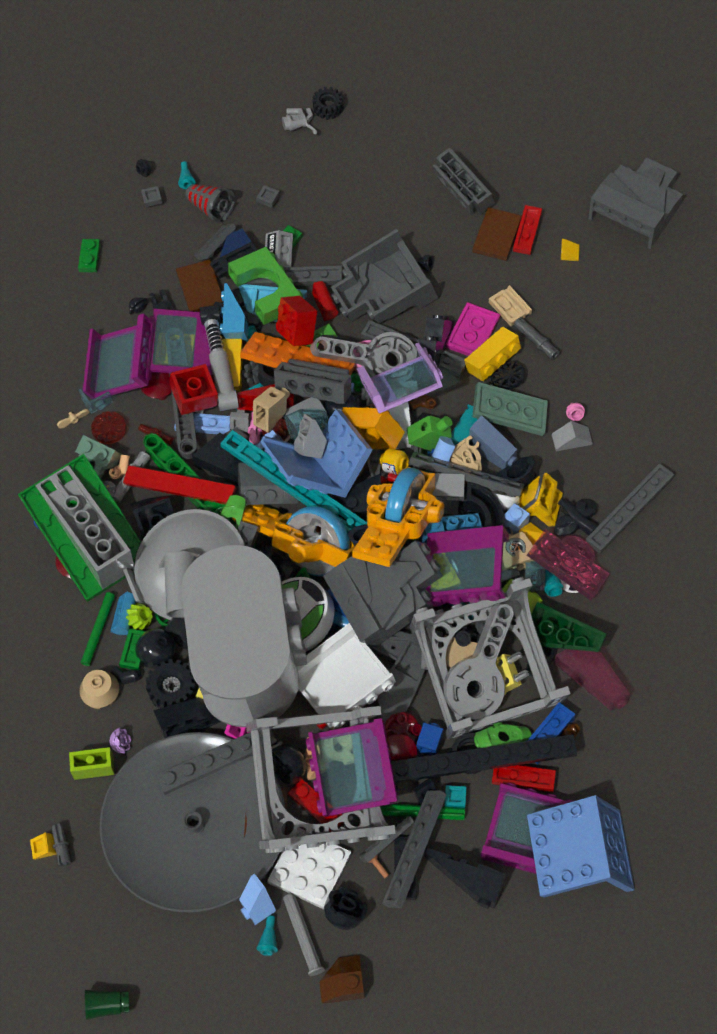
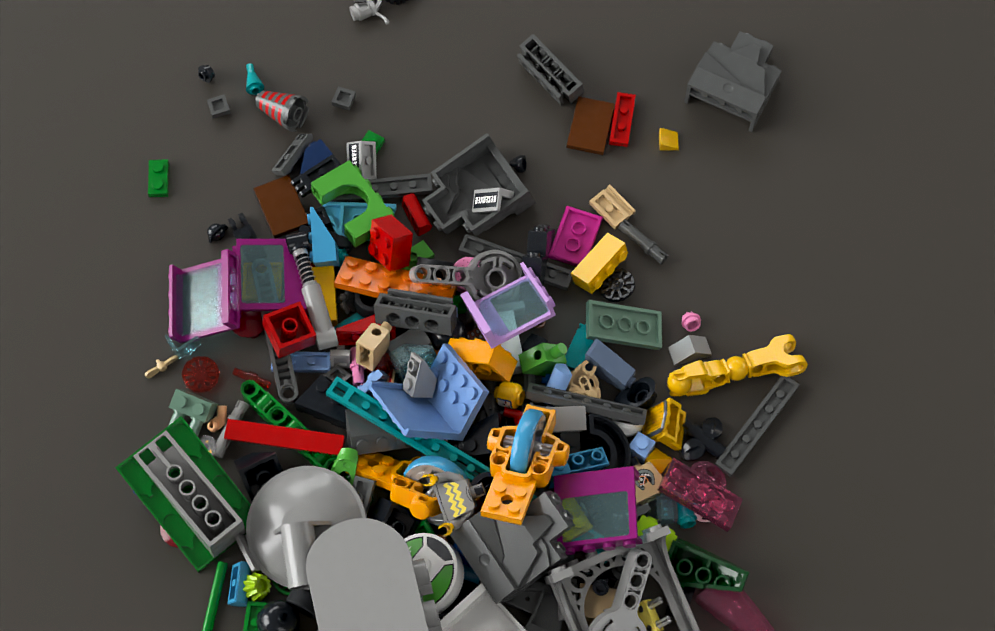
camera: 10 degrees left, 5 degrees up
(330, 542) = (455, 498): none -> light grey torso
(394, 288) = (490, 199): none -> panel
(633, 451) = (701, 376): none -> yellow piece

